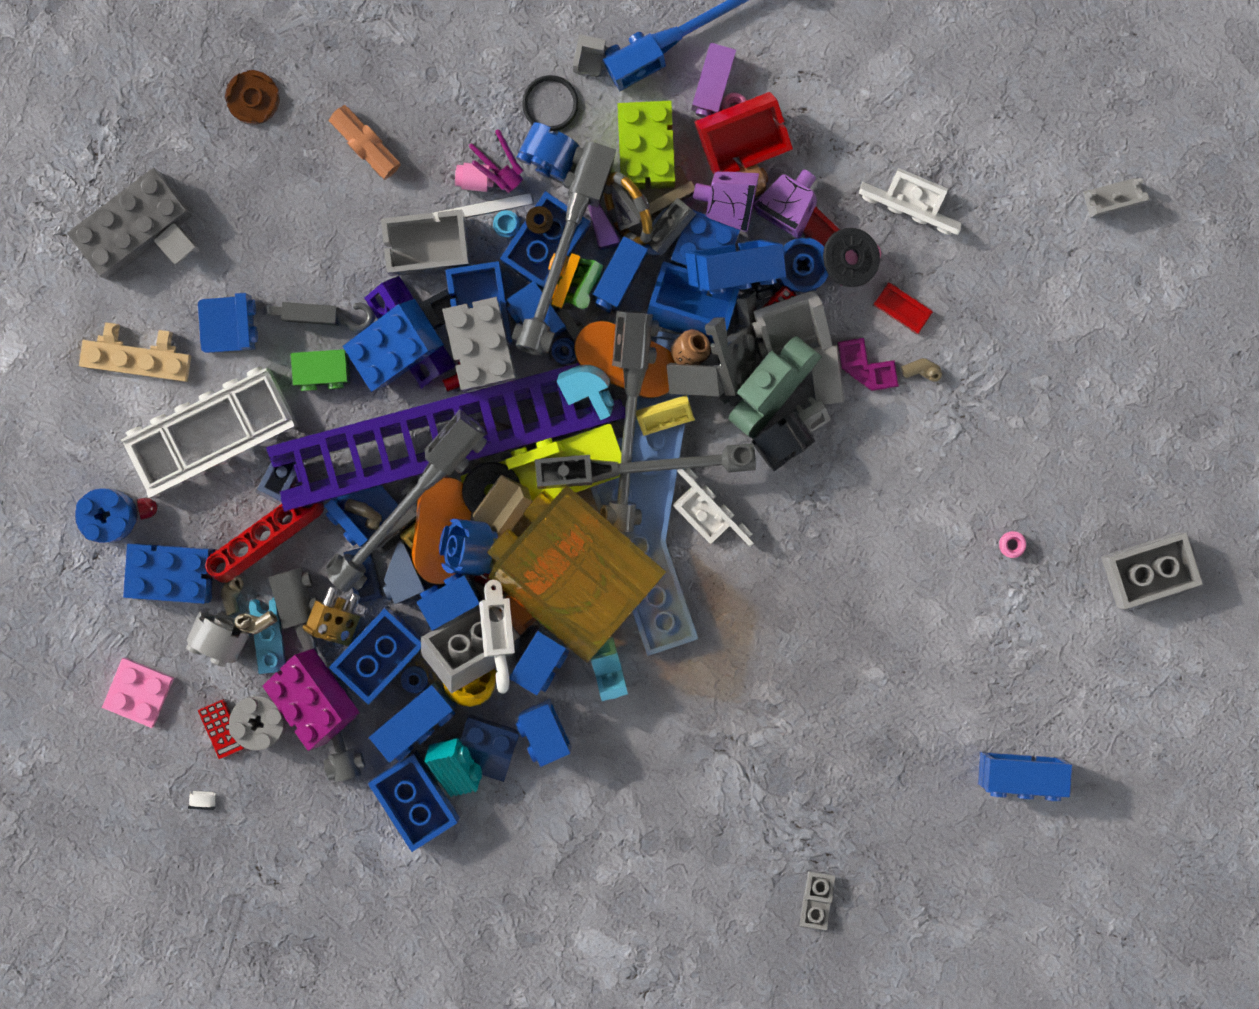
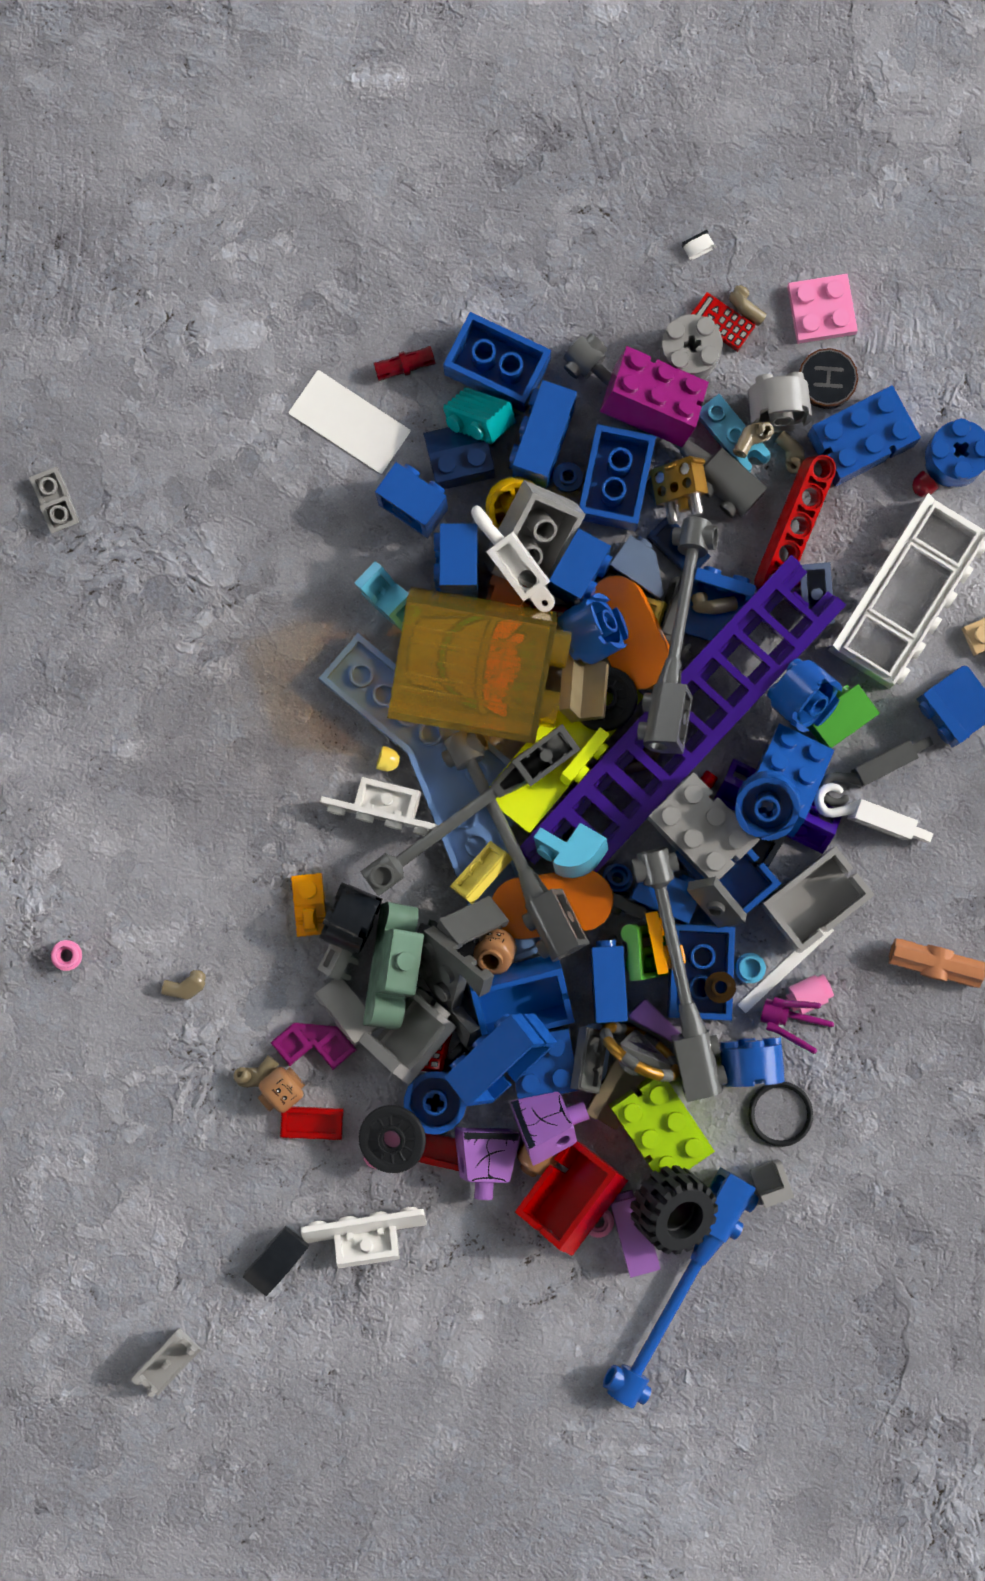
camera: 150 degrees right, 5 degrees down
(166, 635) = (830, 377): none -> black tile
(196, 728) = (745, 307): none -> dark tan arm
(339, 399) = (805, 694): none -> blue brick
(345, 280) = (872, 816): none -> white piece
(434, 323) = (759, 821): none -> blue brick
(485, 845) = (404, 363): none -> dark red pin
(503, 283) = (717, 902): none -> dark grey plate
(554, 825) = (349, 421): none -> white sticker
(674, 77) = (668, 1191): none -> black tyre
(683, 545) = (388, 759): none -> light yellow hinge
(807, 472) = (308, 904): none -> light orange hinge
(911, 345) = (281, 1089): none -> medium nougat head
(937, 464) = (186, 989): none -> dark tan arm
(990, 221) = (276, 1261): none -> black slope

